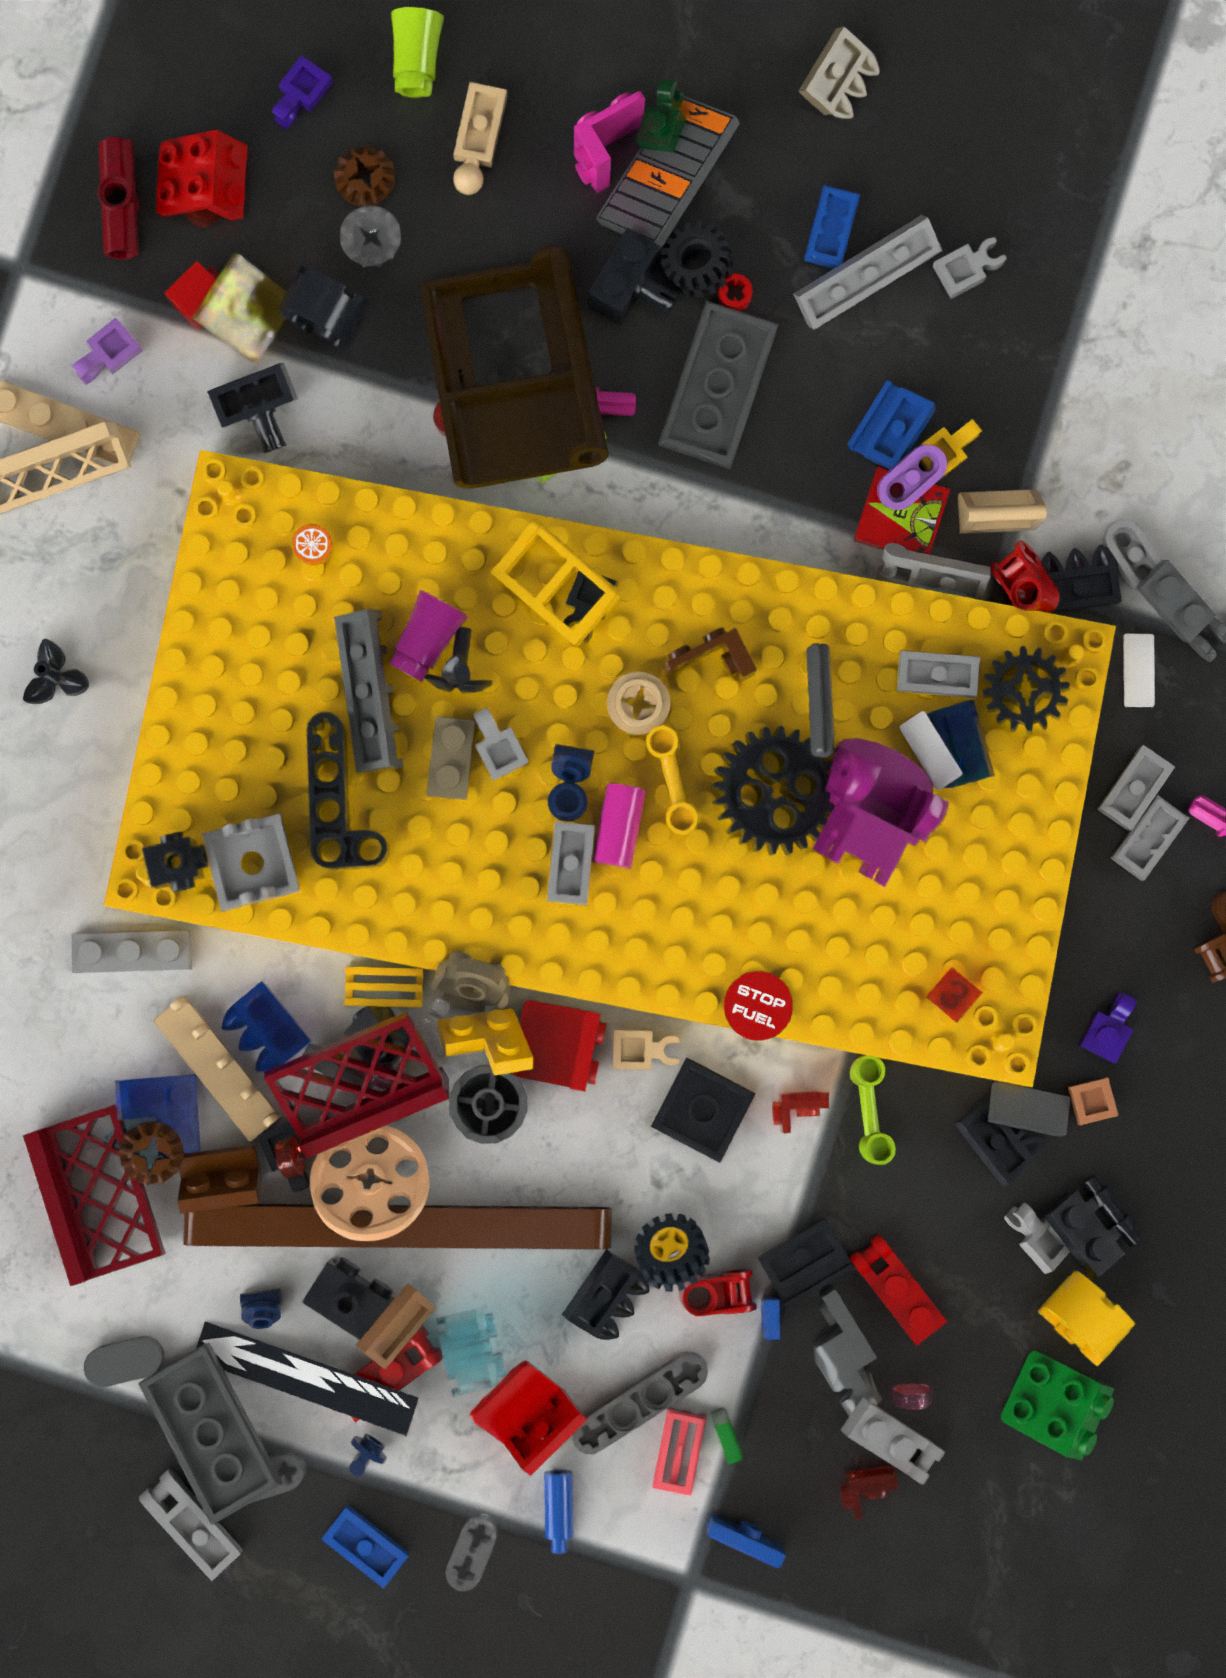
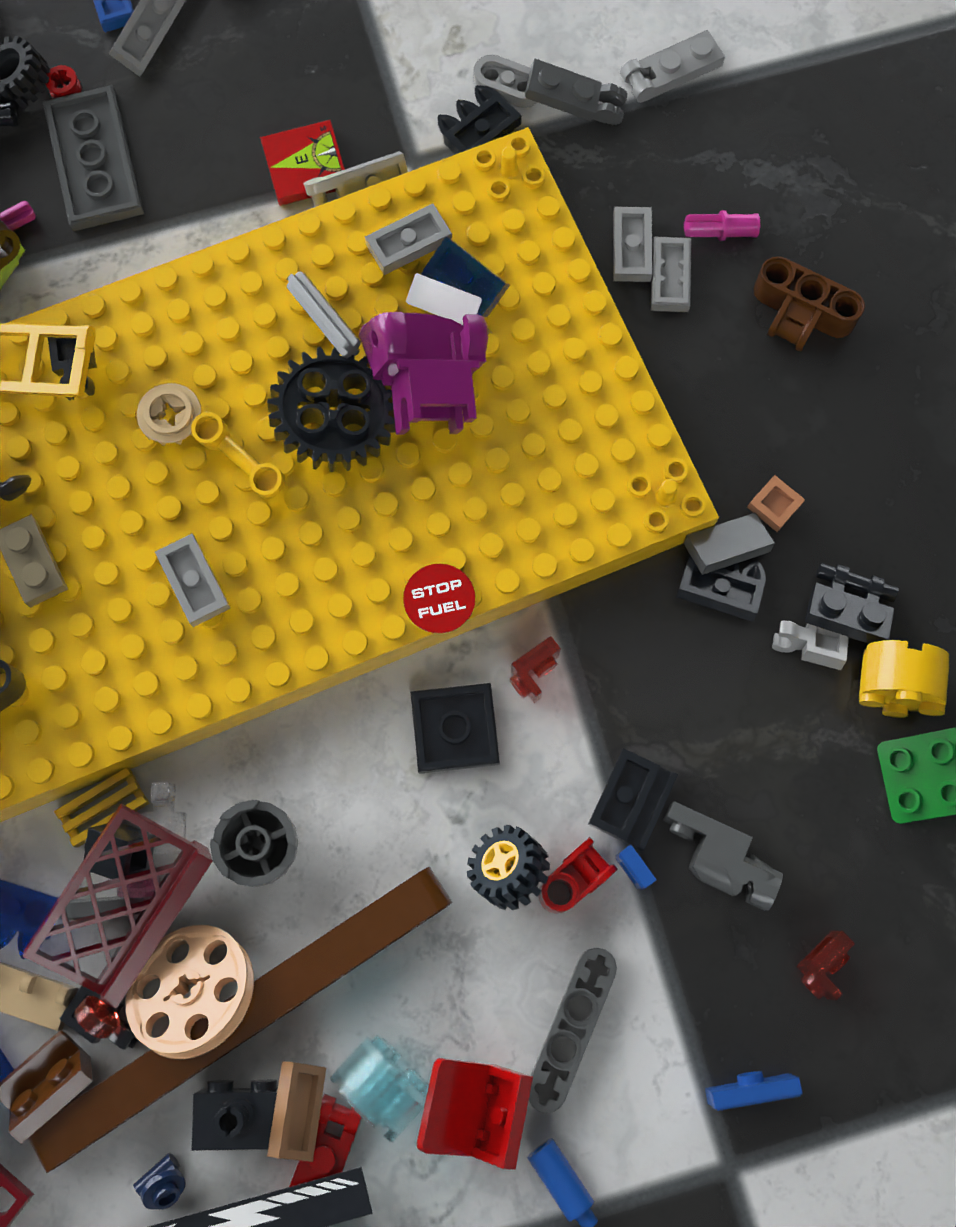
camera: 30 degrees left, 10 degrees down
(471, 983) = (157, 738): dark tan plate -> none
(492, 1031) = (225, 778): yellow plate -> none
(500, 749) = (67, 524): light grey plate -> none
(561, 1044) = (289, 754): red bracket -> none
(567, 802) = (157, 531): dark blue plate -> none
(572, 763) = (141, 498): dark blue plate -> none
(605, 1295) = (475, 950): black plate -> none
(619, 825) = (216, 522): dark pink brick -> none
(636, 1050) = (362, 713): tan plate -> none
(685, 1417) = (622, 1014): coral tile -> none
(726, 1436) = (670, 1002): green tile -> none
(735, 659) = (205, 322): reddish brown bracket -> none
(873, 1146) = (623, 658): lime bar -> none
(891, 425) = (252, 102): blue plate -> none
(892, 1440) = (816, 903): light grey plate -> none
(898, 1291) = (729, 770): red plate -> none
(911, 477) = (290, 123): medium lavender plate -> none
(912, 1396) = (806, 853): clear pink tile -> none
(952, 445) = (307, 94): yellow plate -> none
(954, 994) = (599, 480): clear red tile -> none
(1000, 511) = (382, 111): tan tile -> none
(1021, 575) = (431, 141): red piece -> none
(1044, 687) = (479, 218): black gear -> none
(1107, 1033) = (748, 444): dark purple plate -> none
(1139, 670) = (572, 163): white sticker -> none

